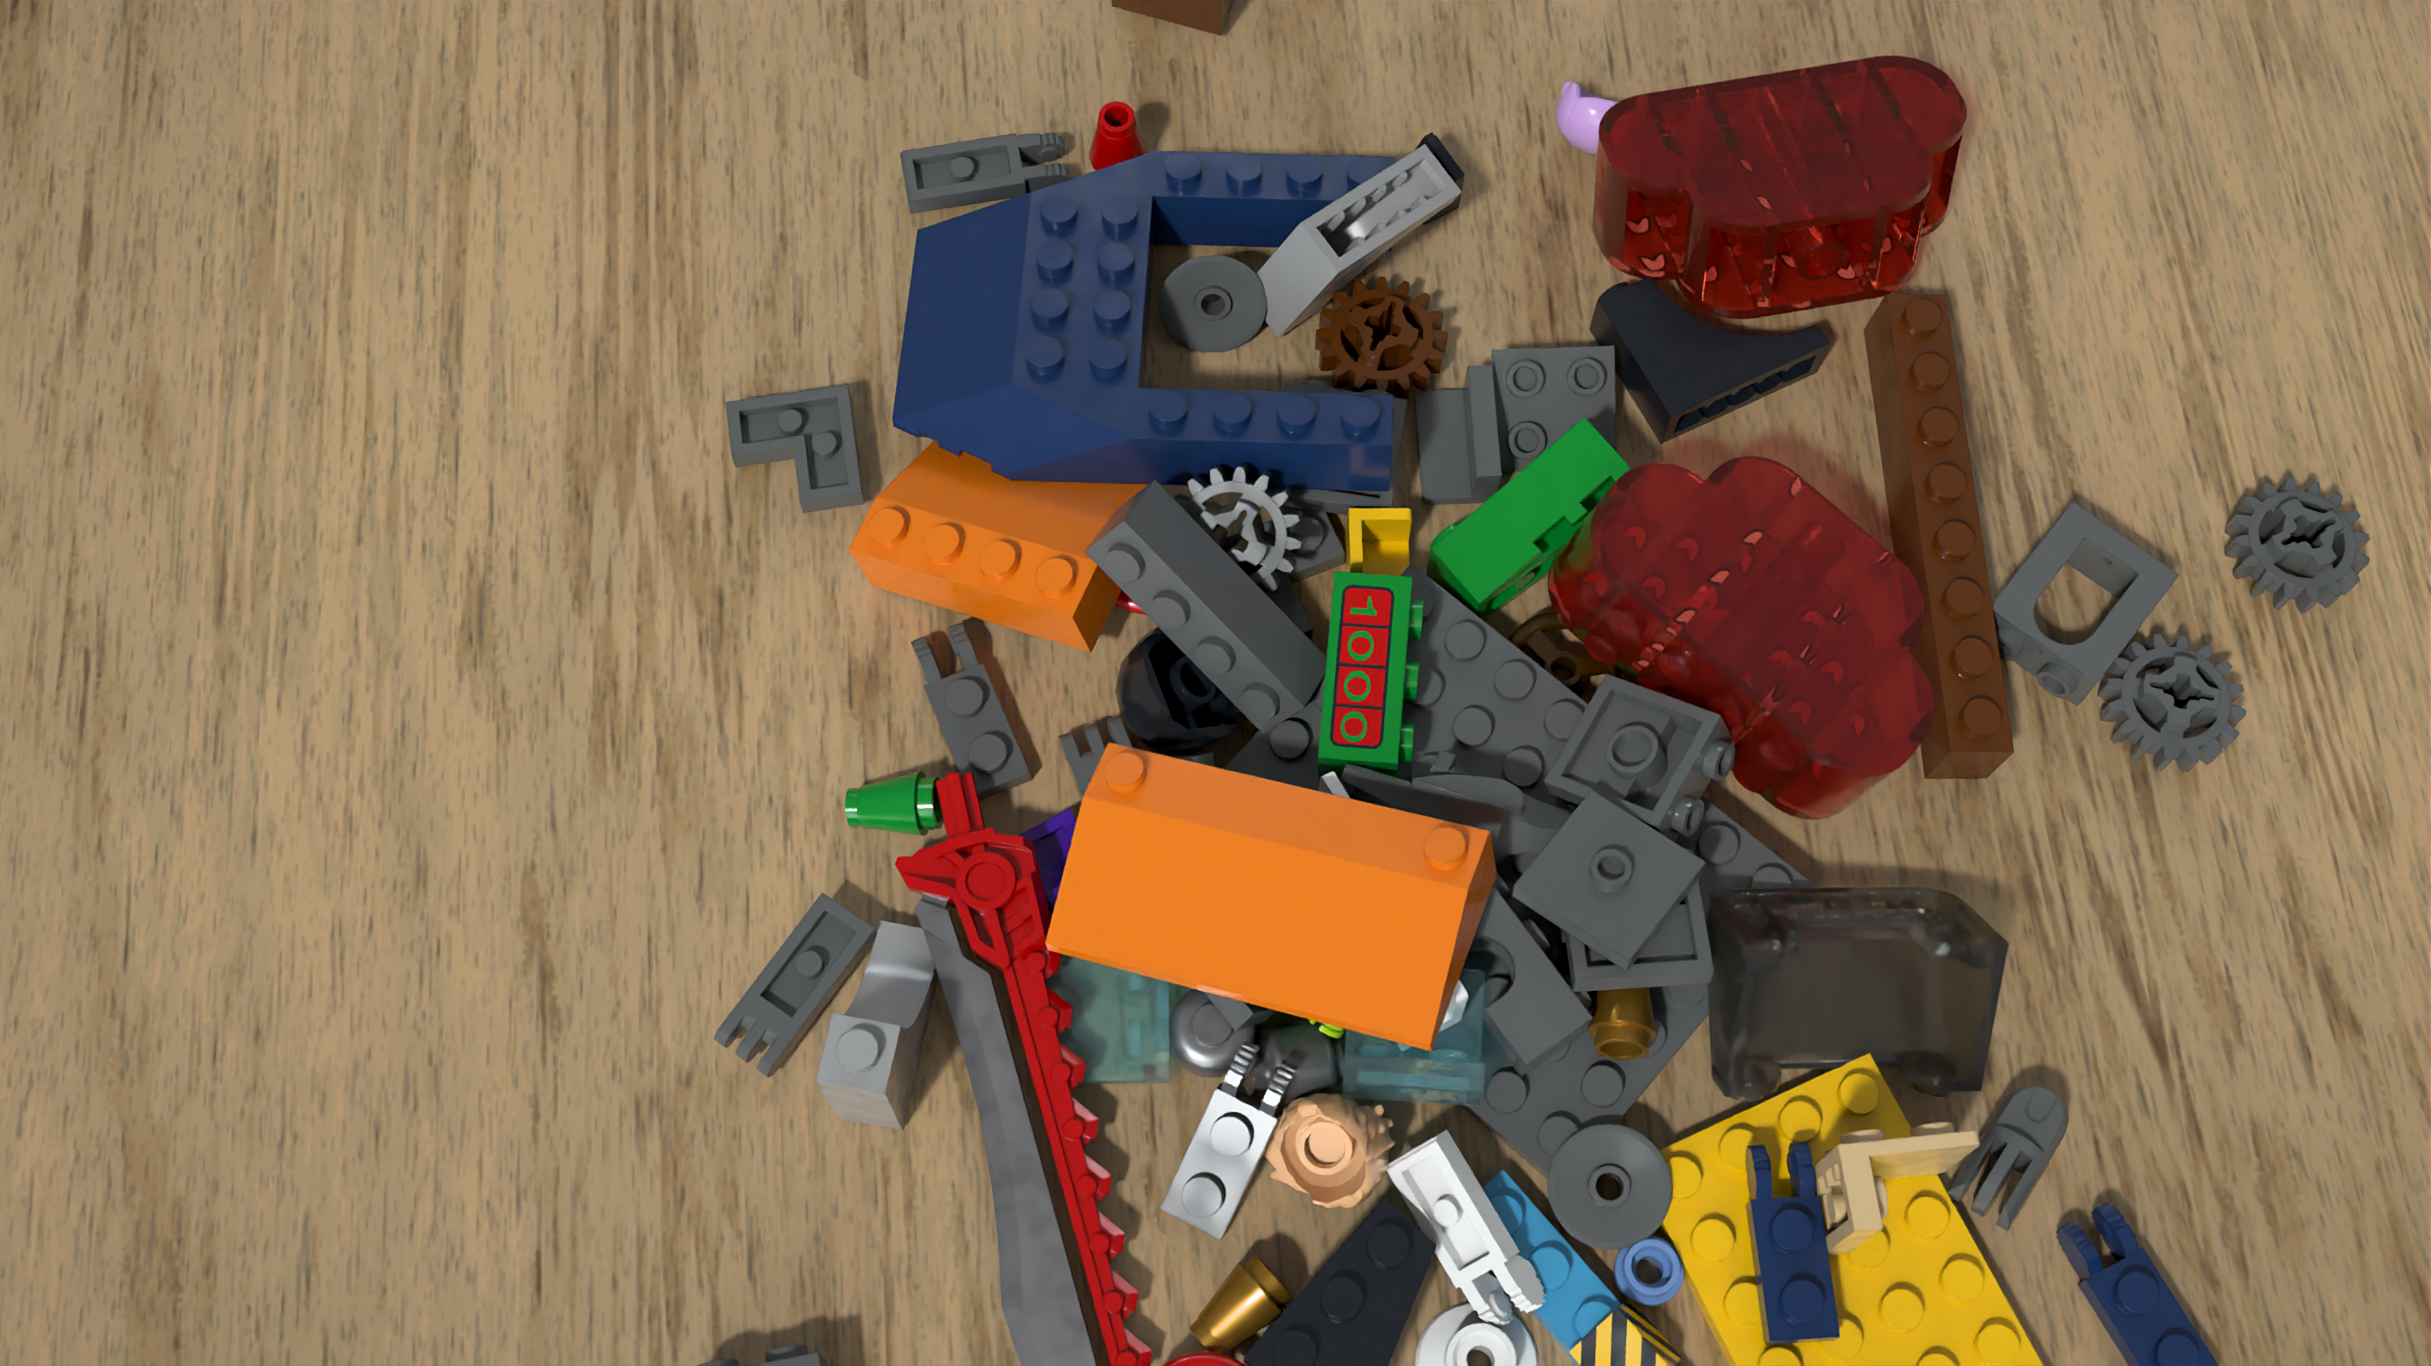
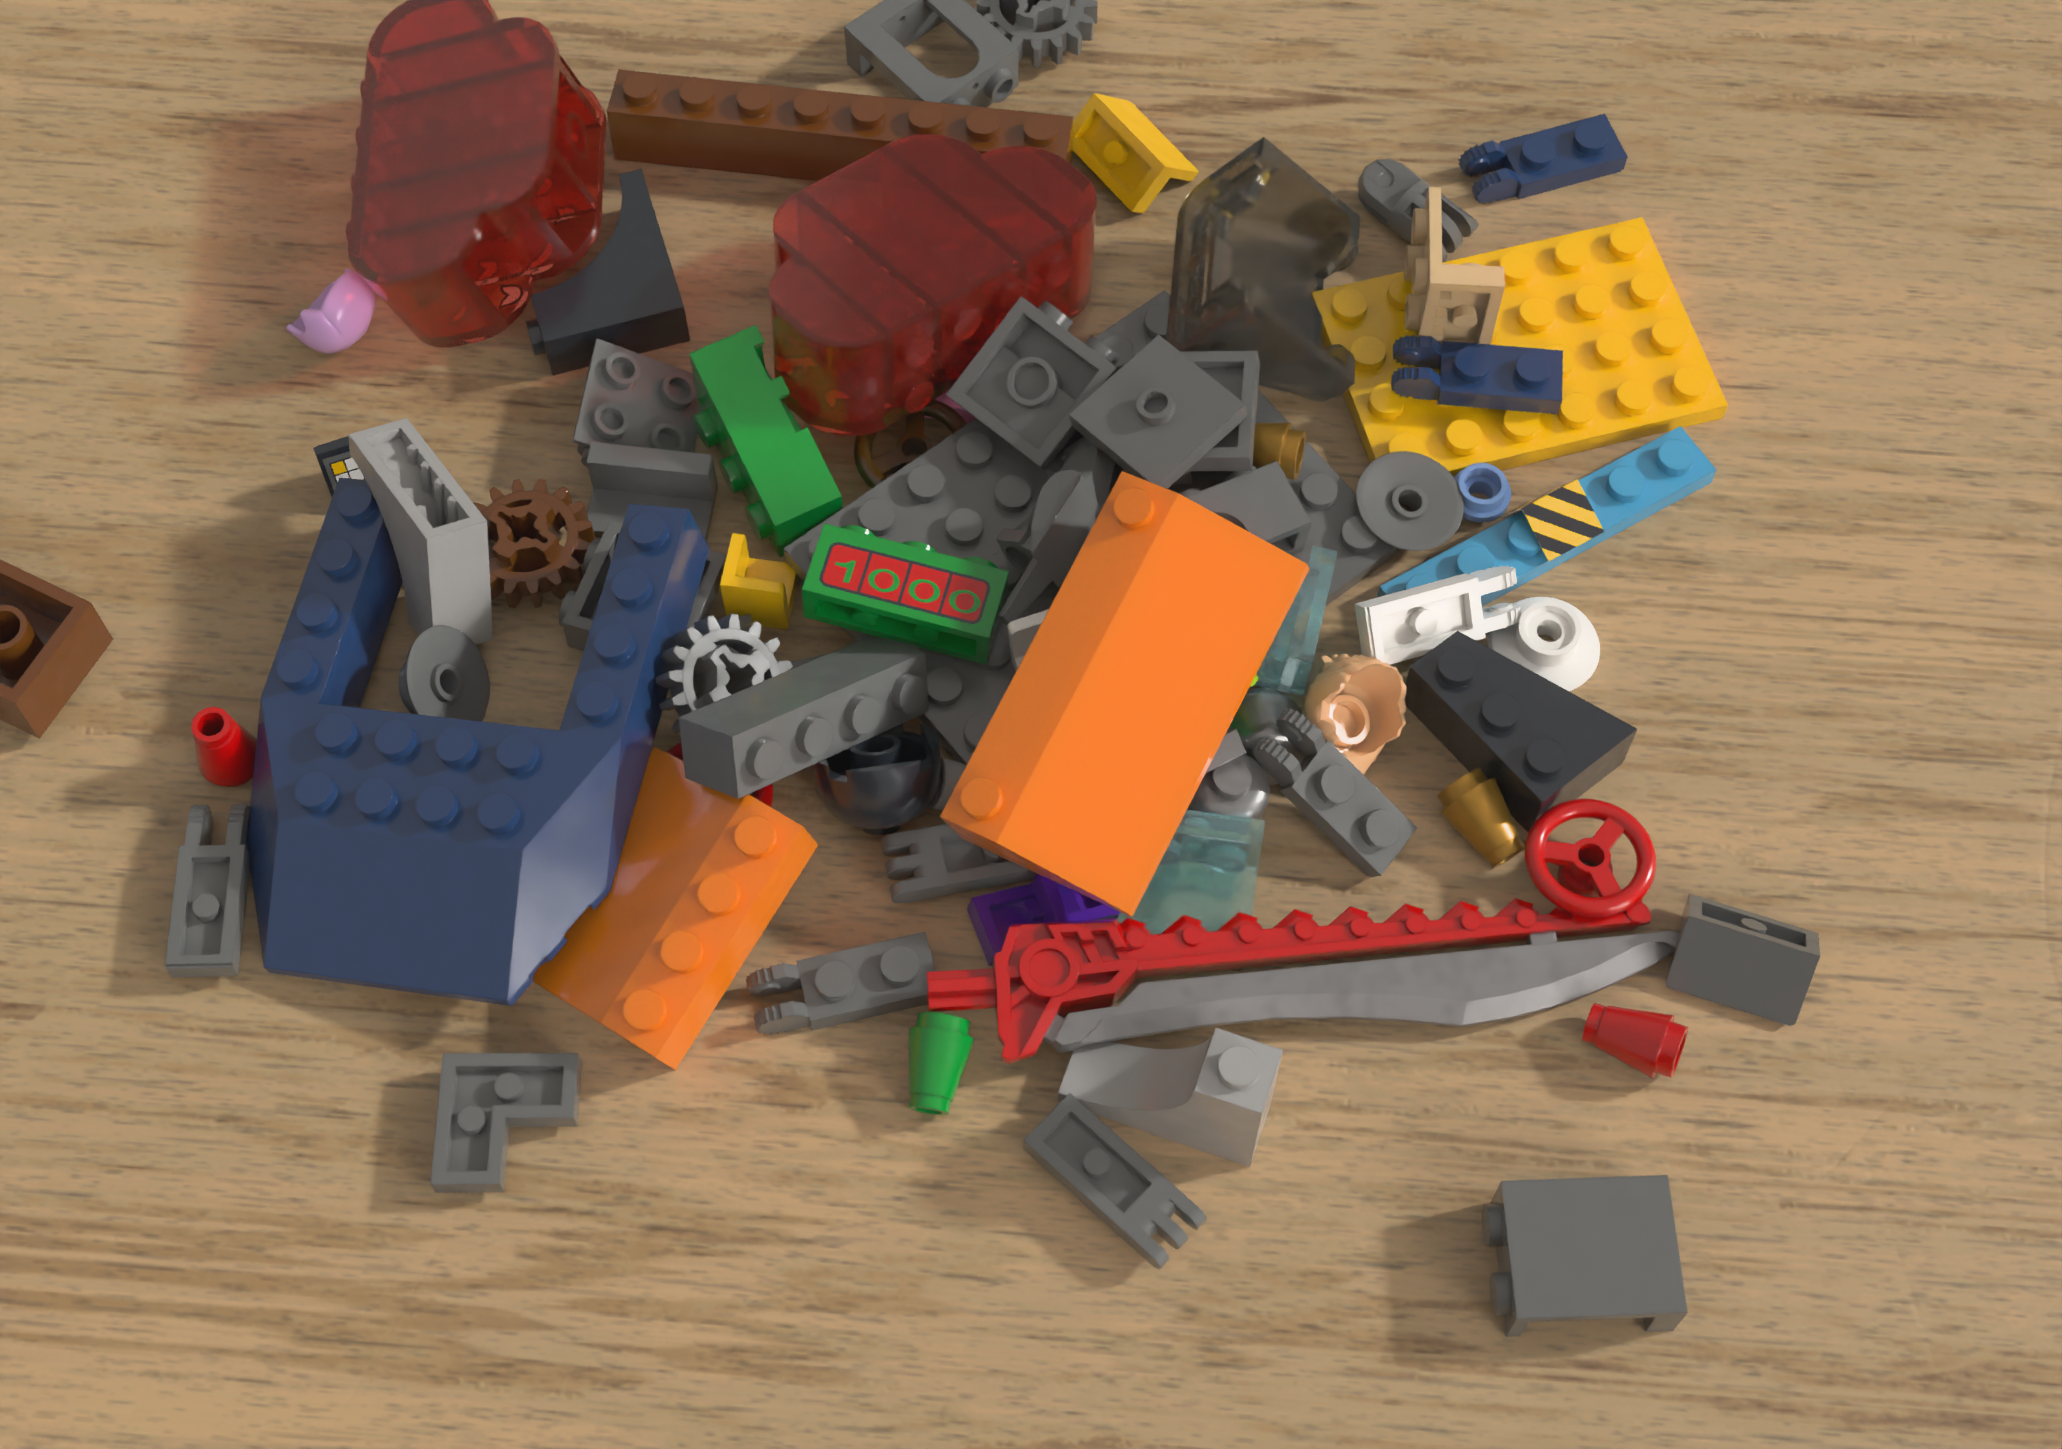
camera: 80 degrees left, 5 degrees down
(2012, 831) = (1127, 151): none -> yellow panel

